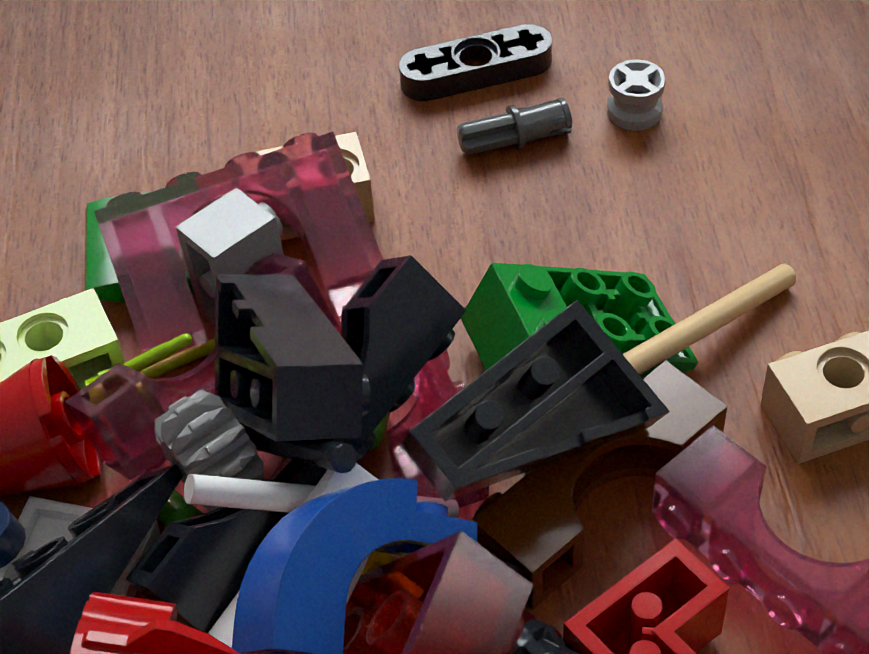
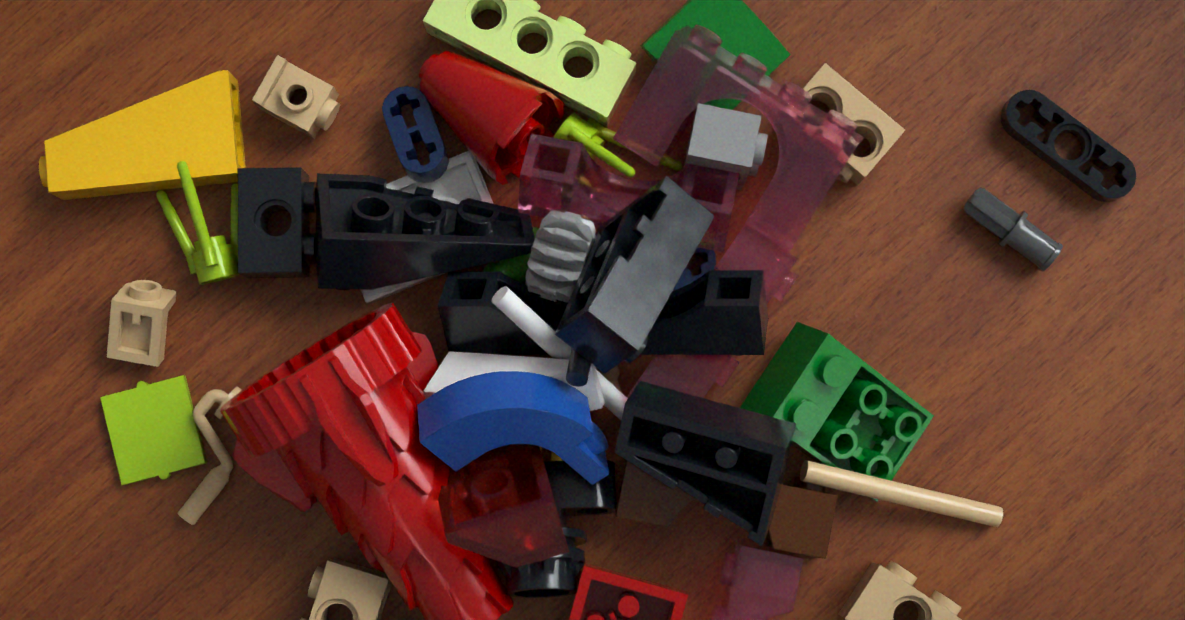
camera: 50 degrees right, 35 degrees up
(635, 94) = (1121, 299): light grey wheel -> none

